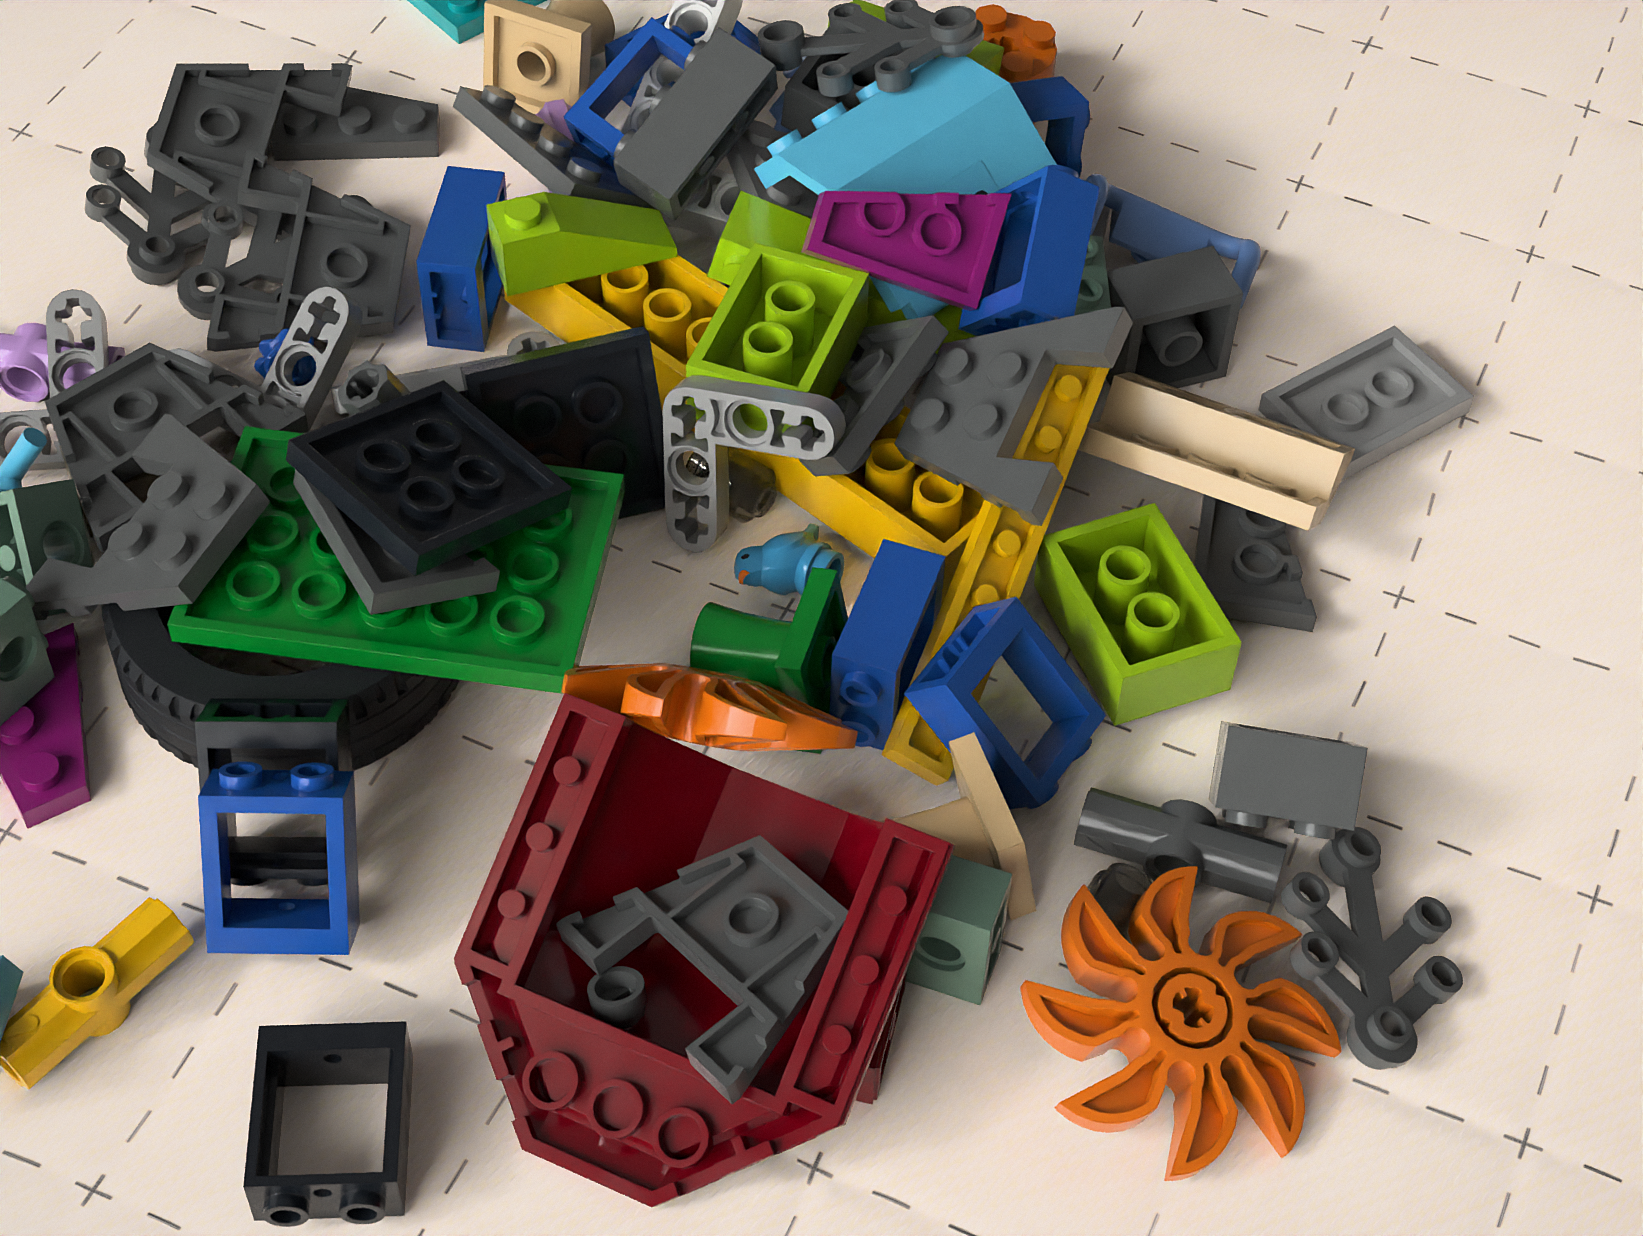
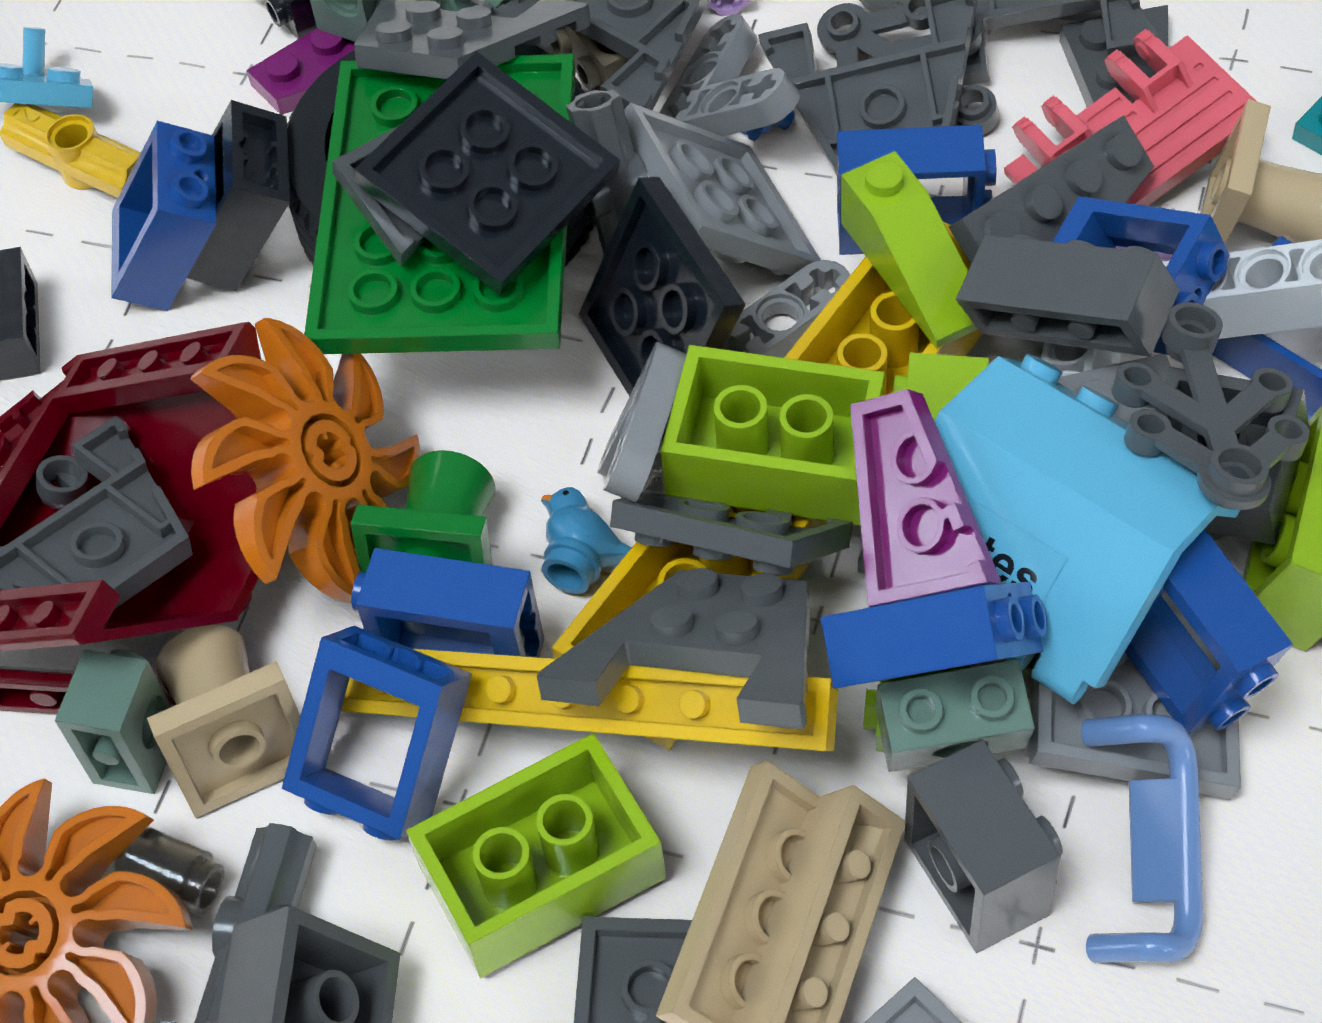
camera: 90 degrees right, 5 degrees up
(421, 78) = (1177, 114): none -> coral hinge

